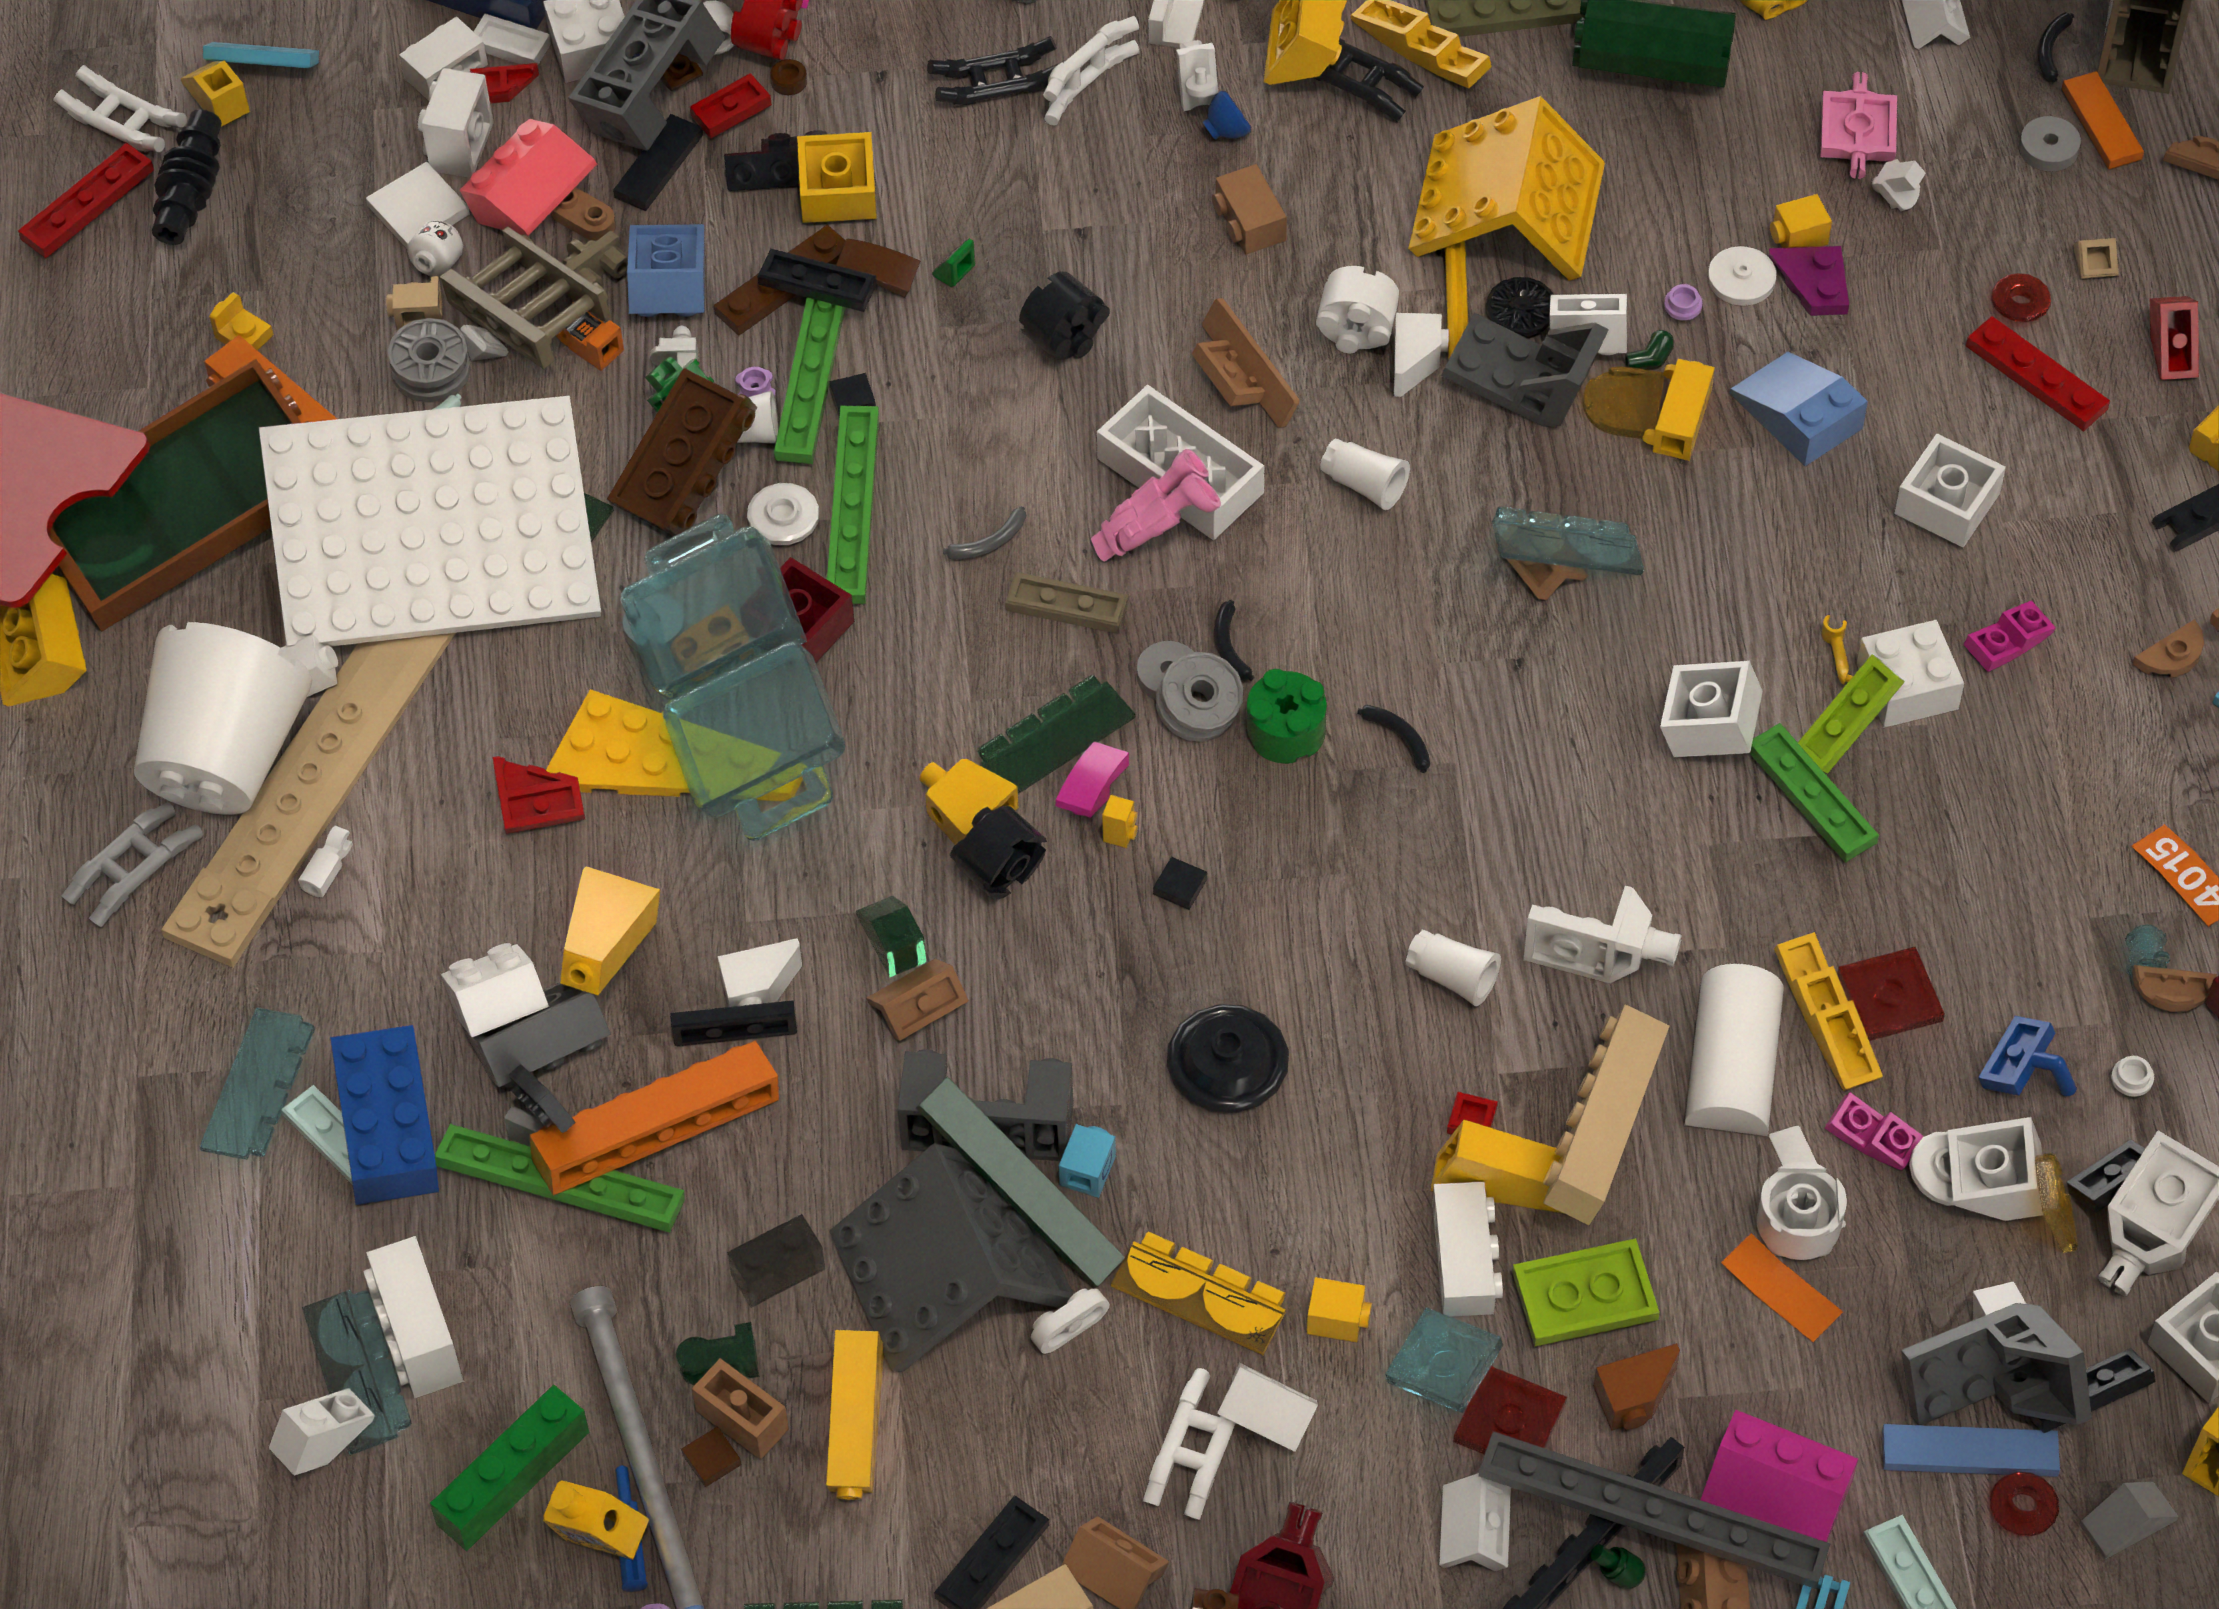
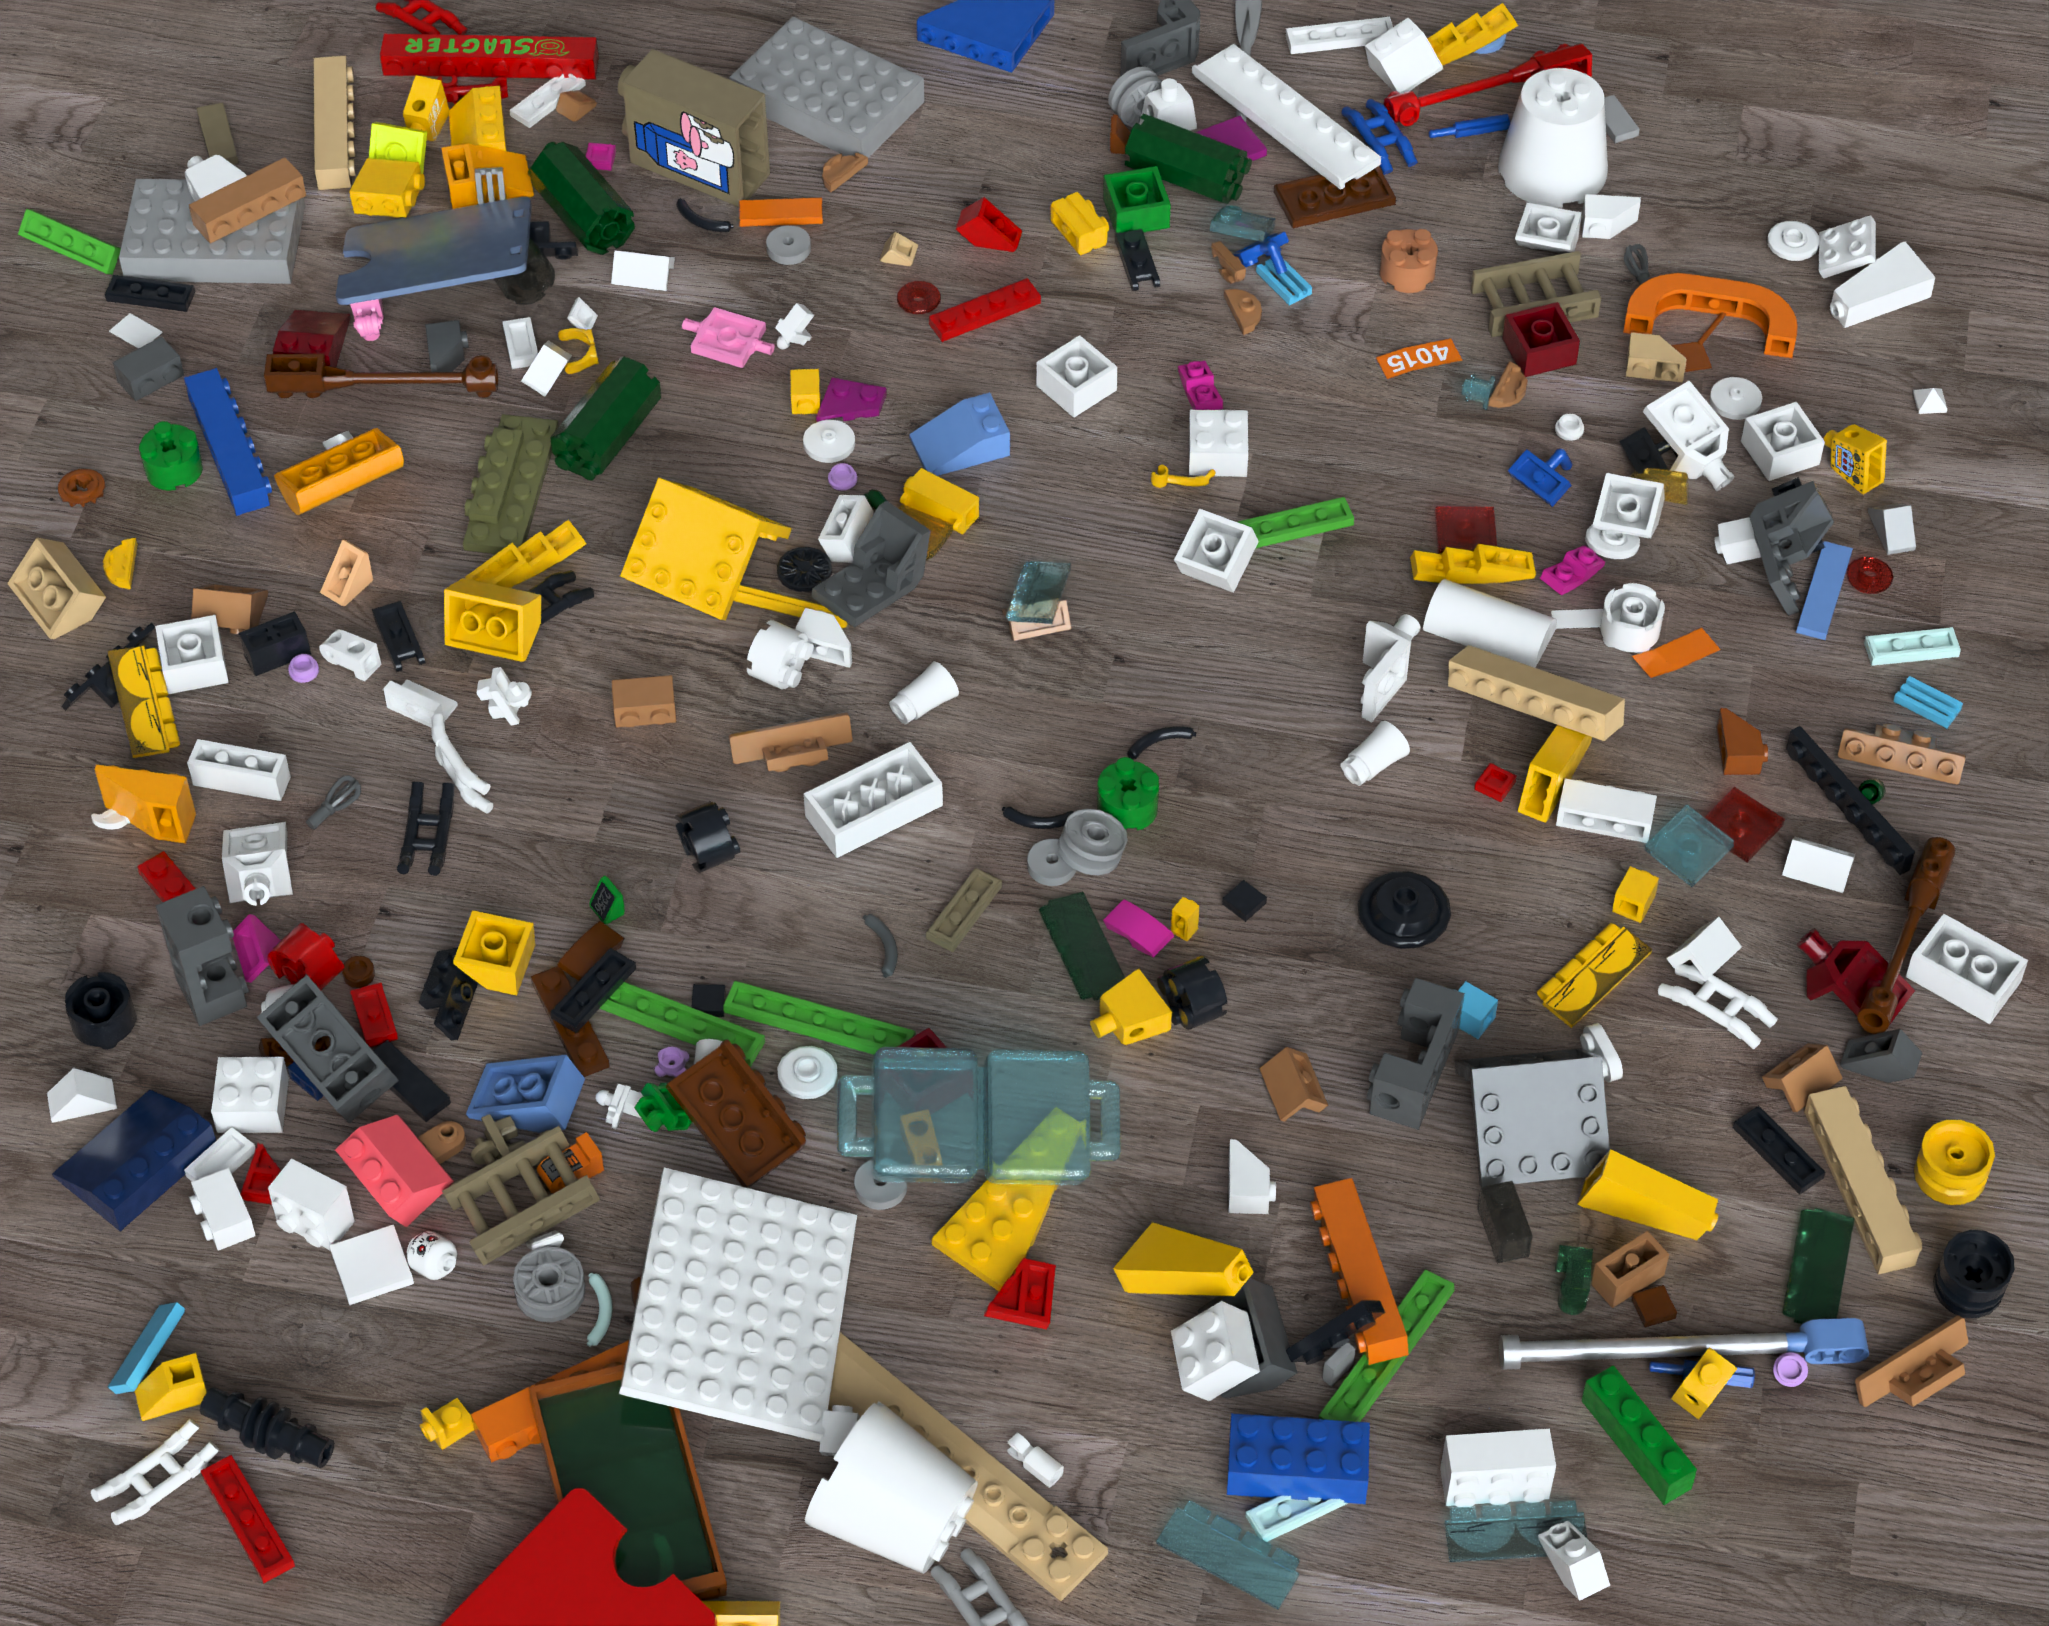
camera: 75 degrees left, 5 degrees down
(415, 302) = (486, 1281): tan brick -> none
(733, 1023) = (1284, 1206): black tile -> none
(893, 935) = (1232, 1085): clear green slope -> none
(1020, 1182) = (1495, 1041): tile -> none
(1155, 508) = (921, 824): bright pink piece -> none
(1226, 118) = (548, 693): blue brick -> none
(1585, 1292) = (1657, 754): lime plate -> none
(1654, 1510) = (1849, 750): dark grey plate -> none
(1779, 1477) = (1828, 690): dark pink slope -> none
(1850, 713) = (1247, 476): lime plate -> none

